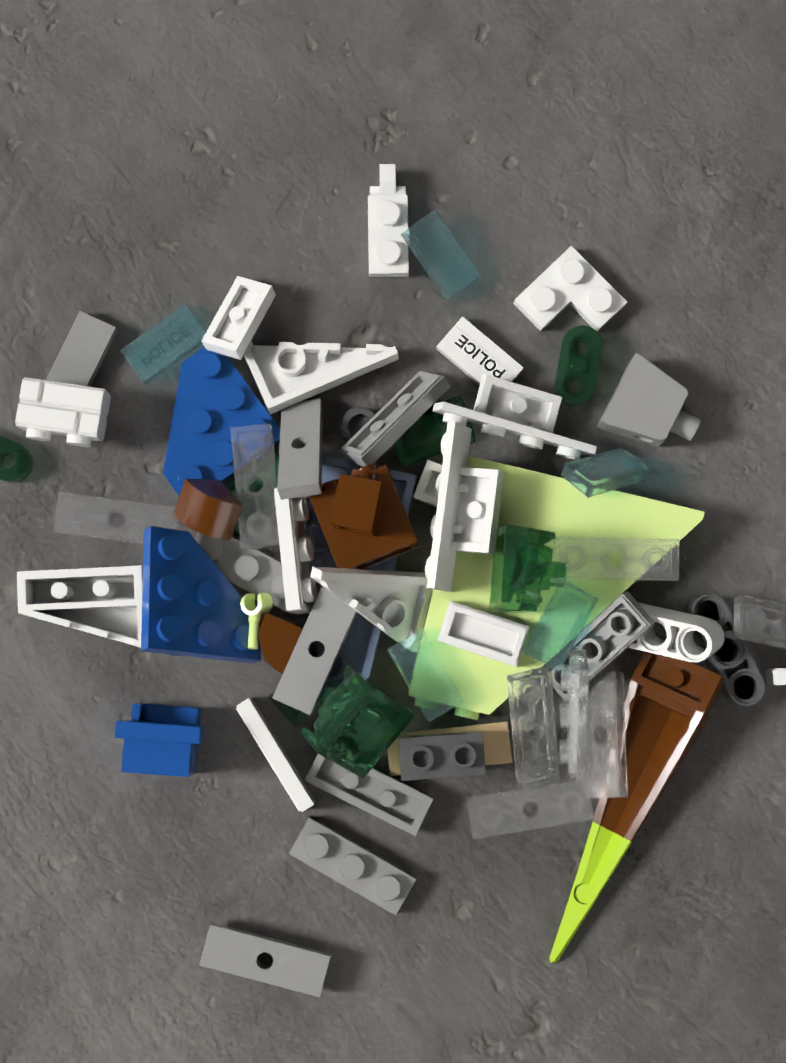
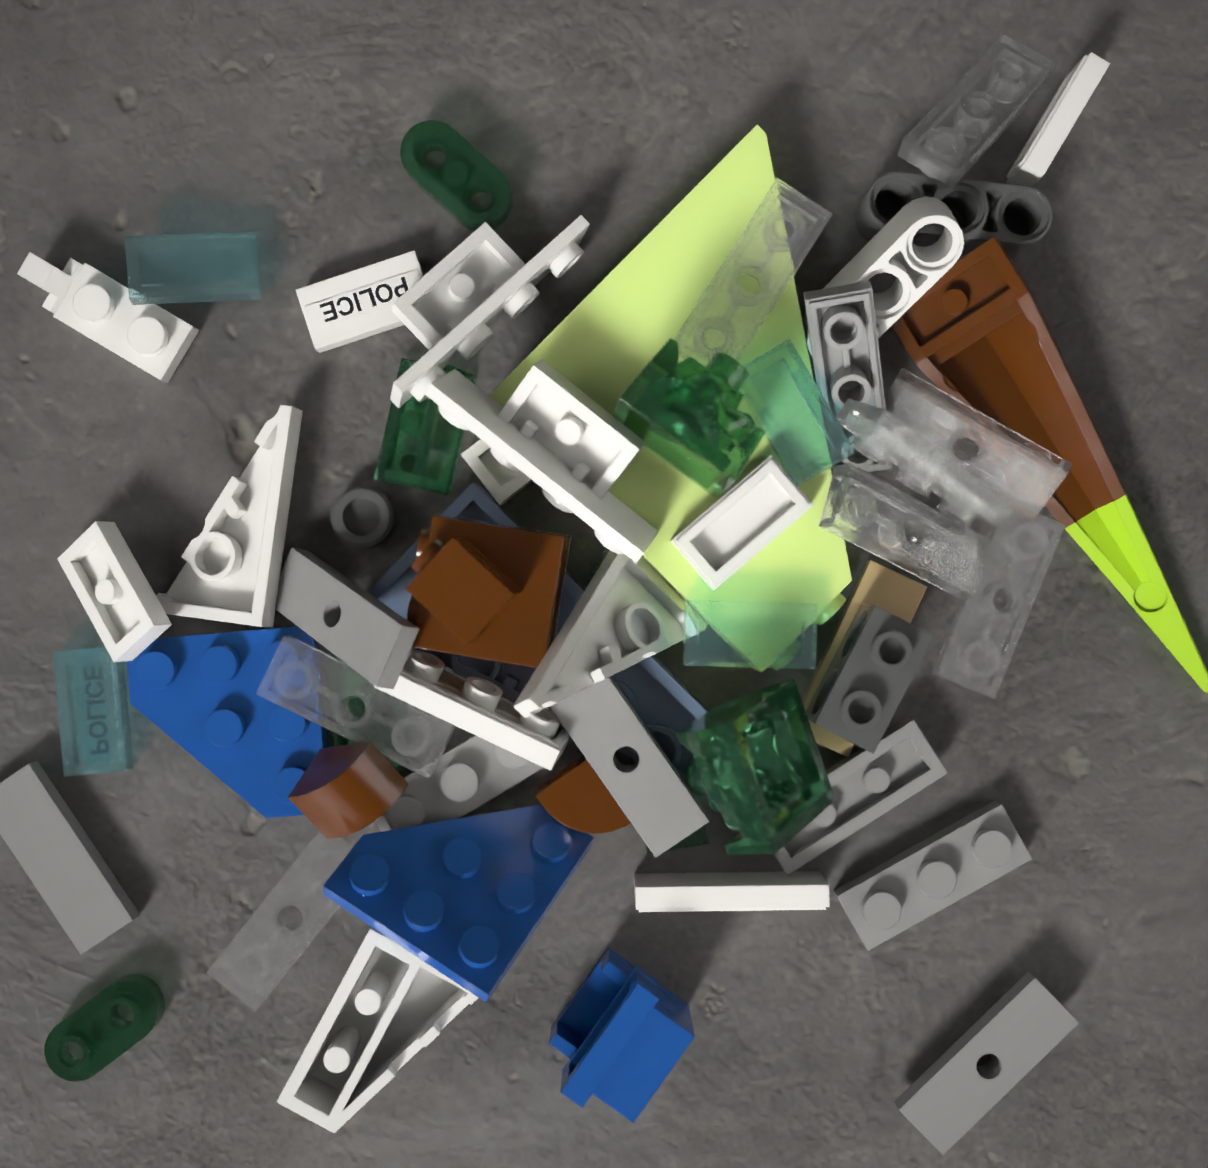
camera: 55 degrees left, 5 degrees up
(62, 410) = (95, 905): white brick -> none
(248, 606) = (522, 808): yellowish green hand -> none
(394, 418) = (378, 465): light grey tile -> none
(572, 283) = (337, 118): white plate -> none
(605, 472) = (622, 225): clear light blue tile -> none
(648, 406) = (566, 114): light grey torso -> none

